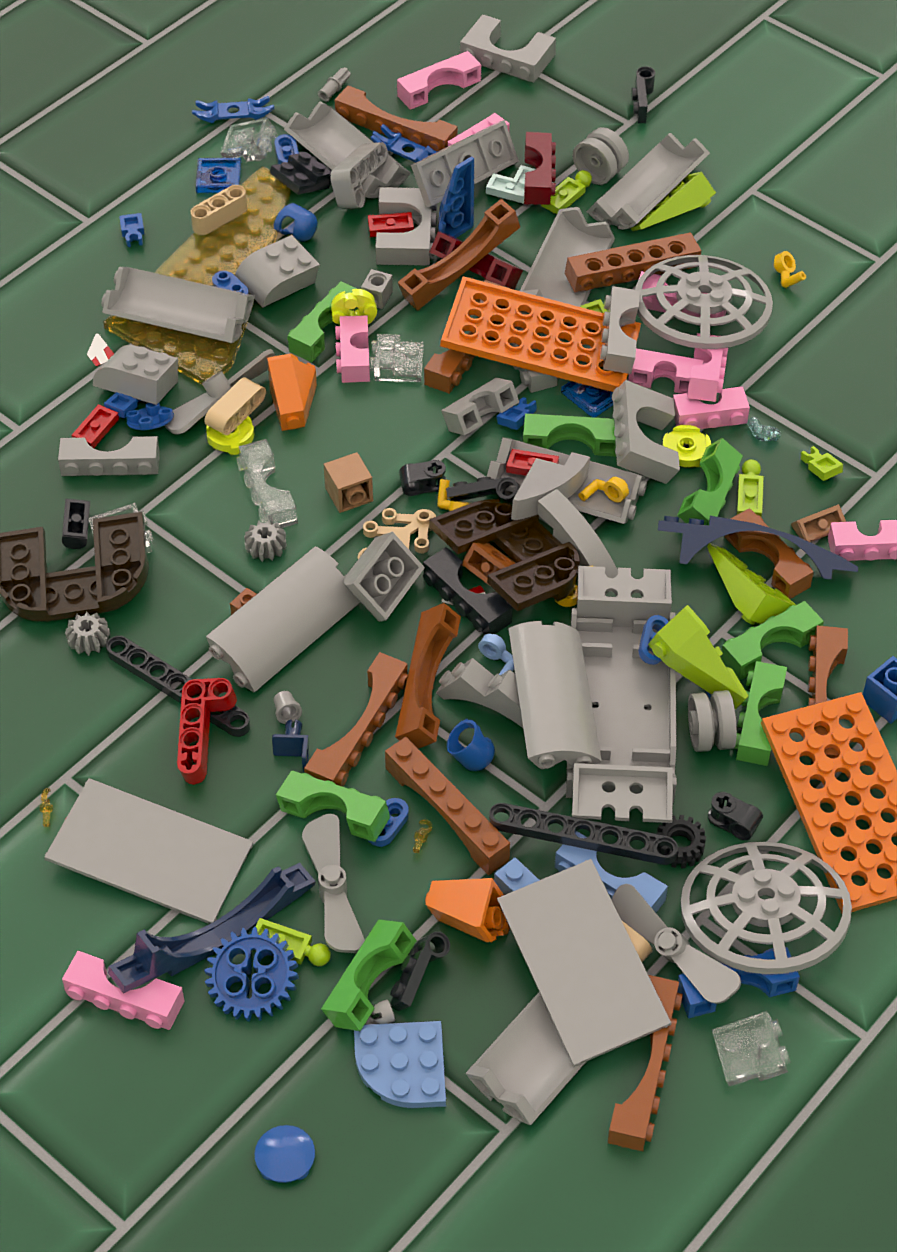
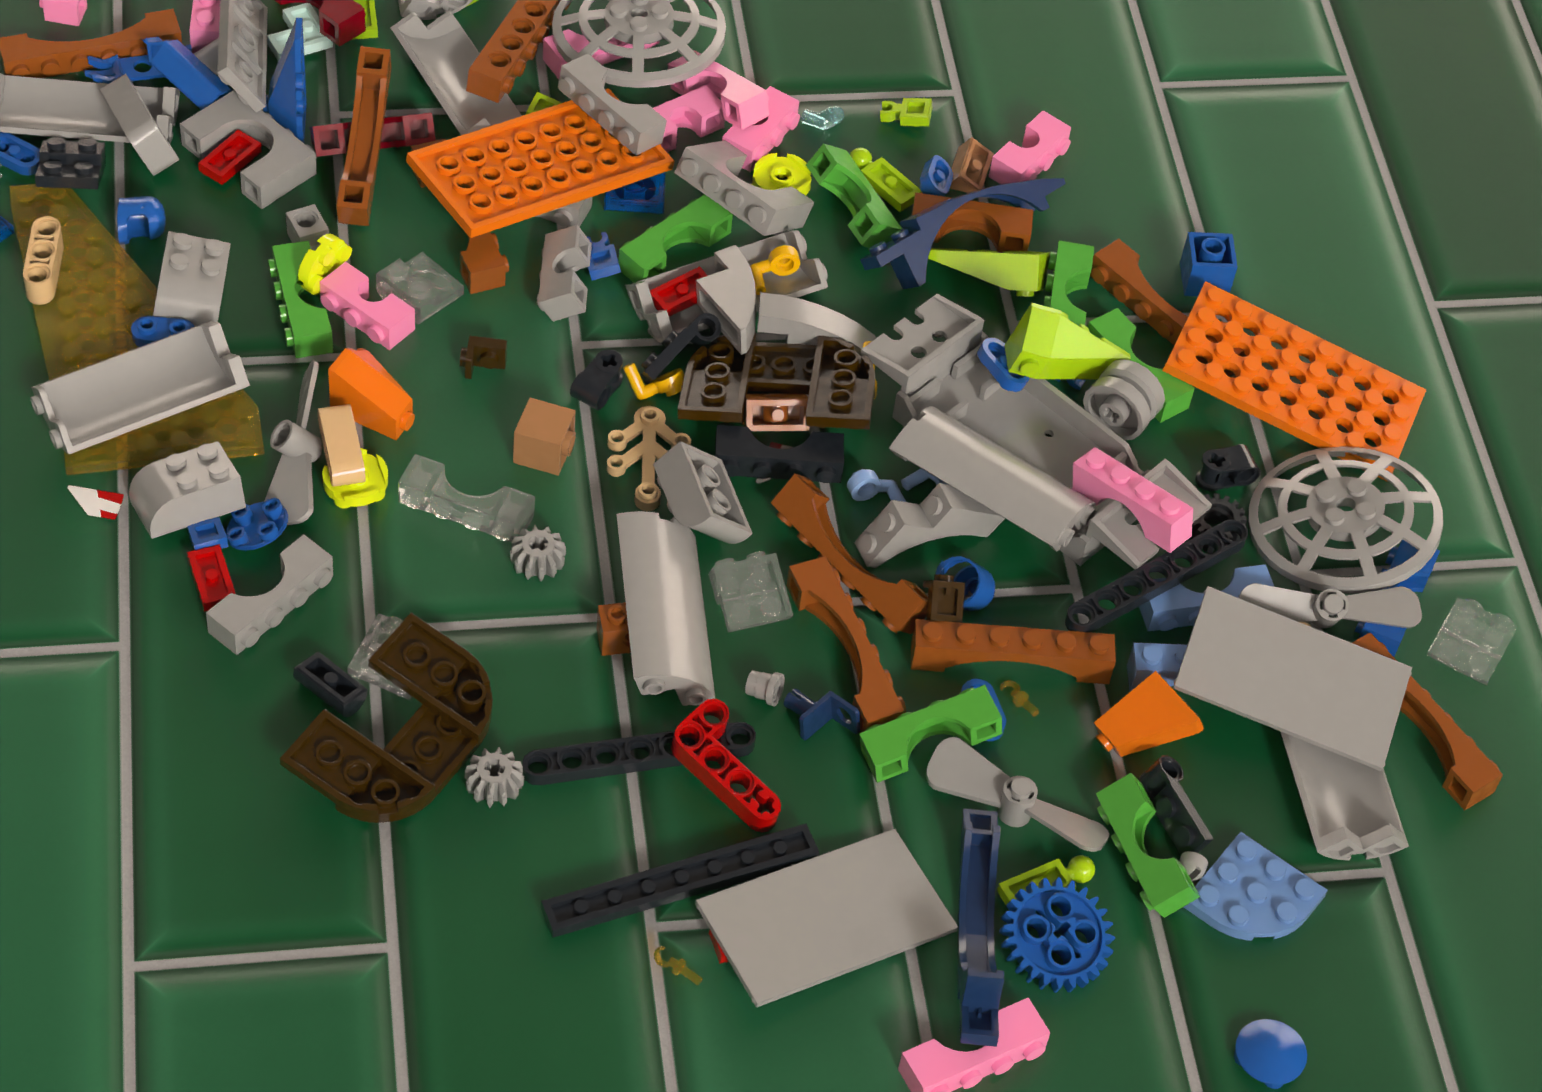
camera: 55 degrees left, 0 degrees up
(106, 765) = (678, 880): none -> black plate
(346, 650) = (750, 591): none -> clear plate
(379, 416) = (483, 353): none -> dark brown bracket
(416, 148) = (185, 71): none -> blue piece
(434, 738) = (944, 598): none -> dark brown bracket
(617, 774) = (1161, 515): none -> bright pink arch
(782, 511) = (936, 177): none -> blue plate

